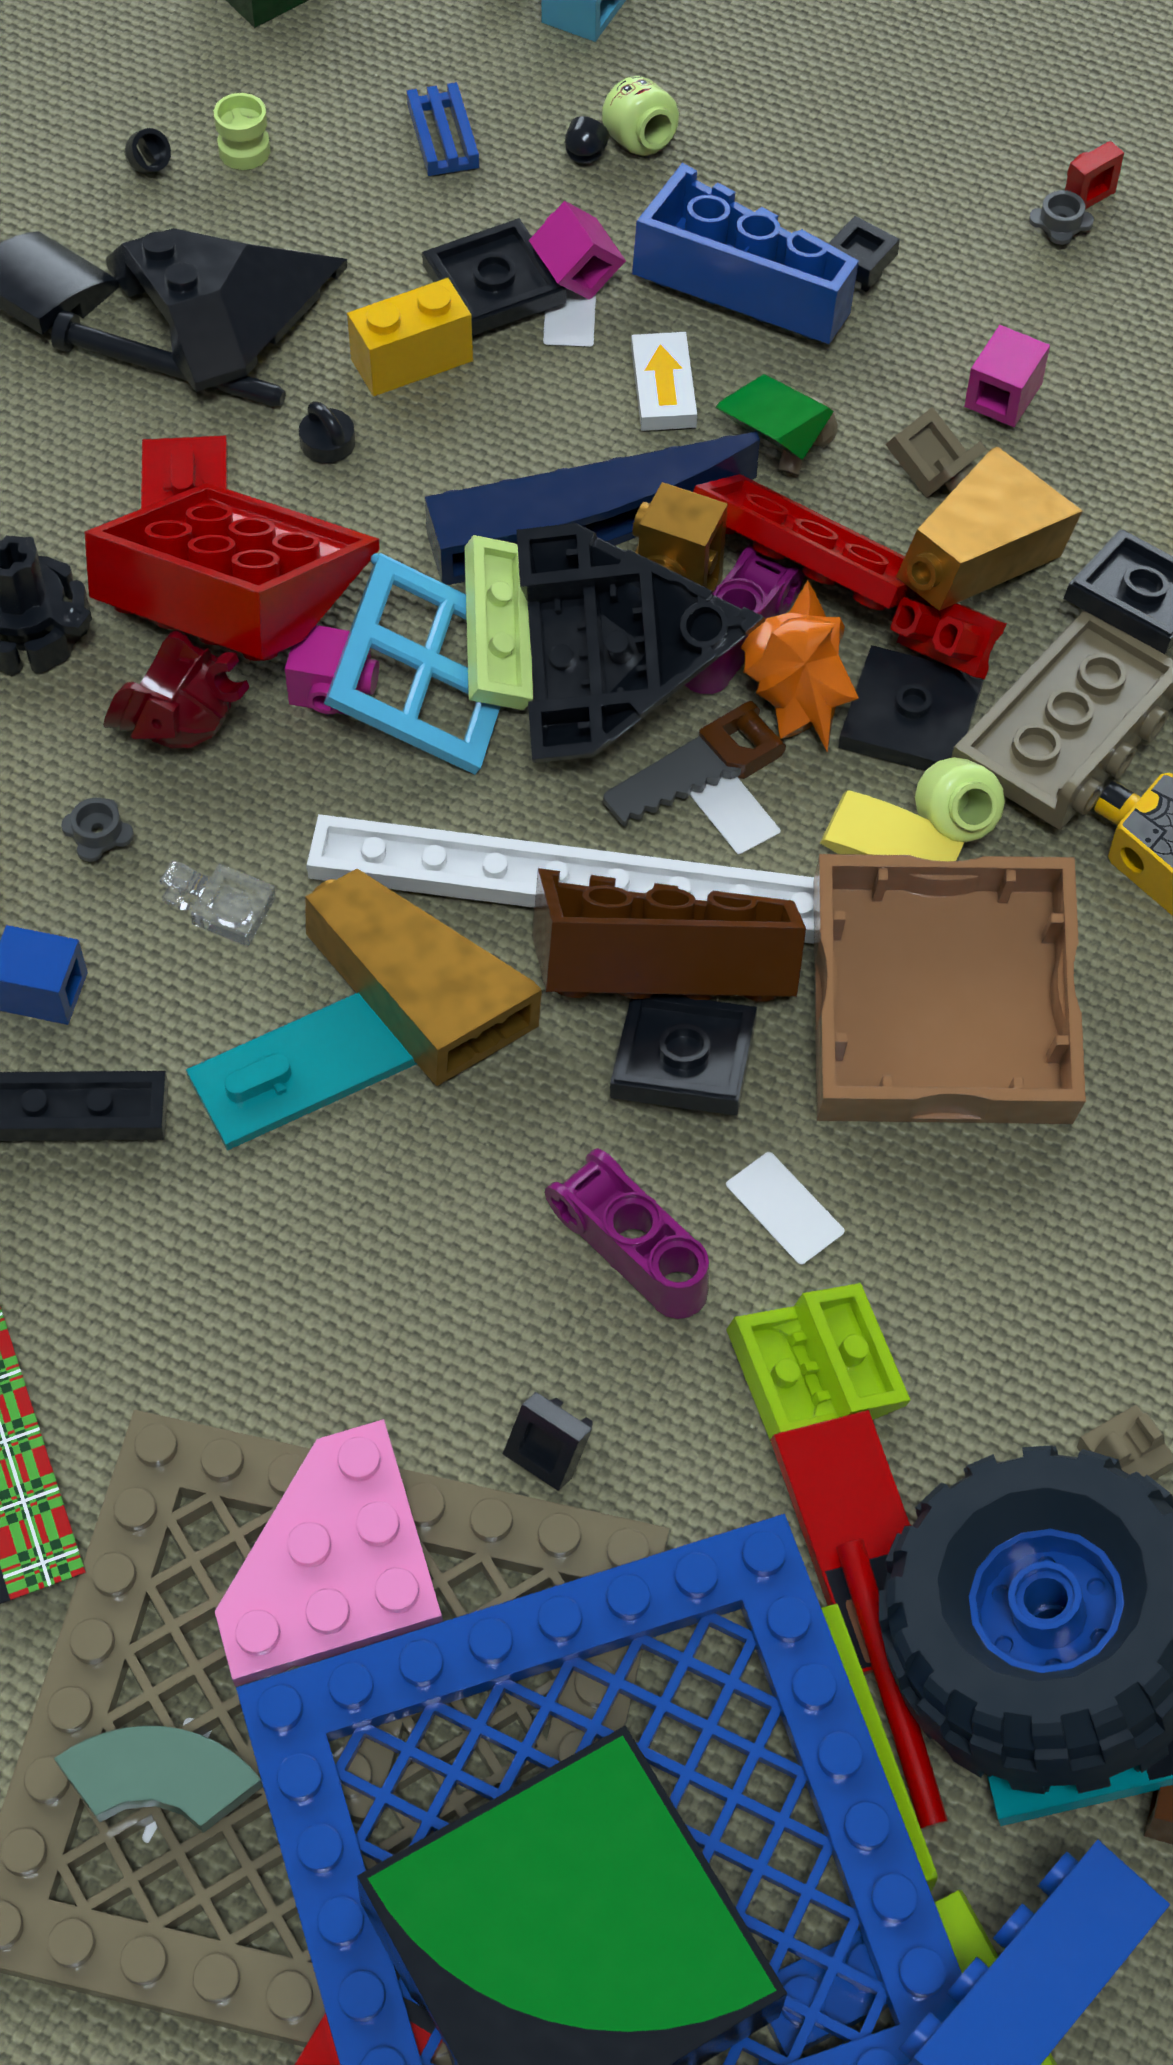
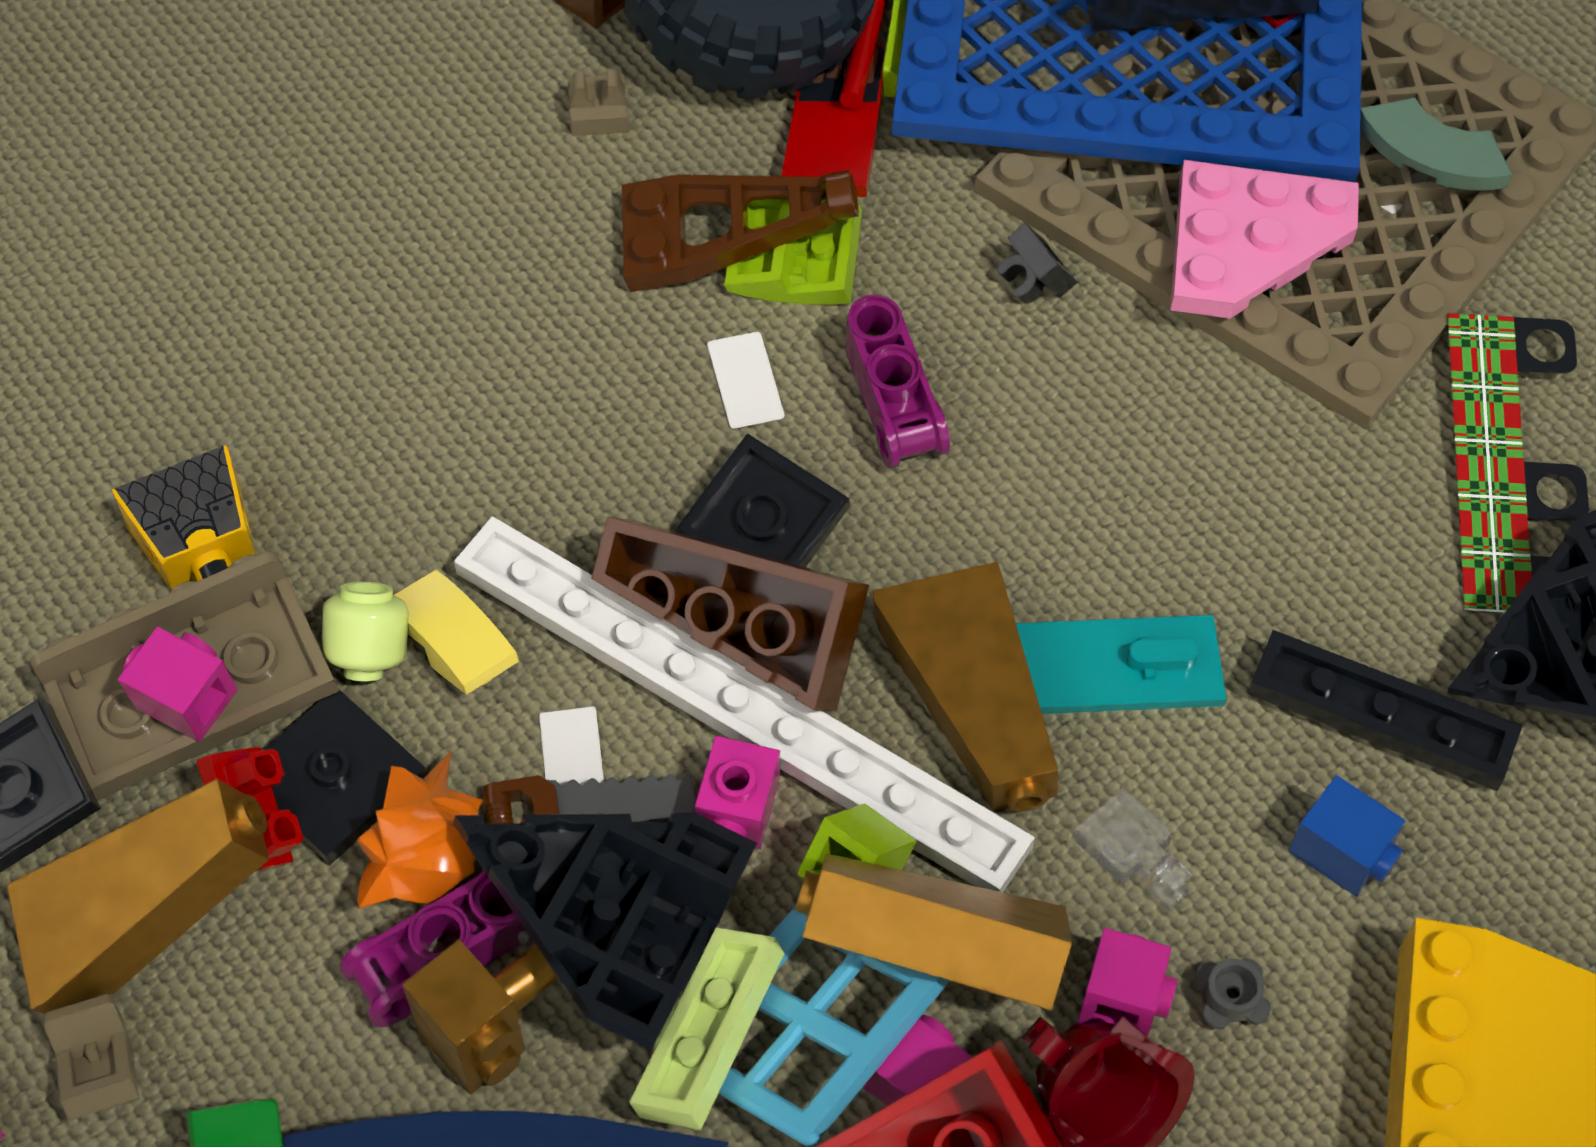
camera: 155 degrees left, 0 degrees up
(183, 778) = (1128, 981): none -> dark pink brick
(338, 721) = (939, 927): none -> pearl gold slope
(444, 783) = (859, 835): none -> lime brick
(573, 804) = (740, 787): none -> dark pink brick
(818, 543) = (313, 987): red plate -> none
(947, 990) = (505, 449): medium nougat tile -> none
(958, 1304) = (655, 221): none -> reddish brown plate
(1069, 674) = (178, 682): none -> dark pink brick

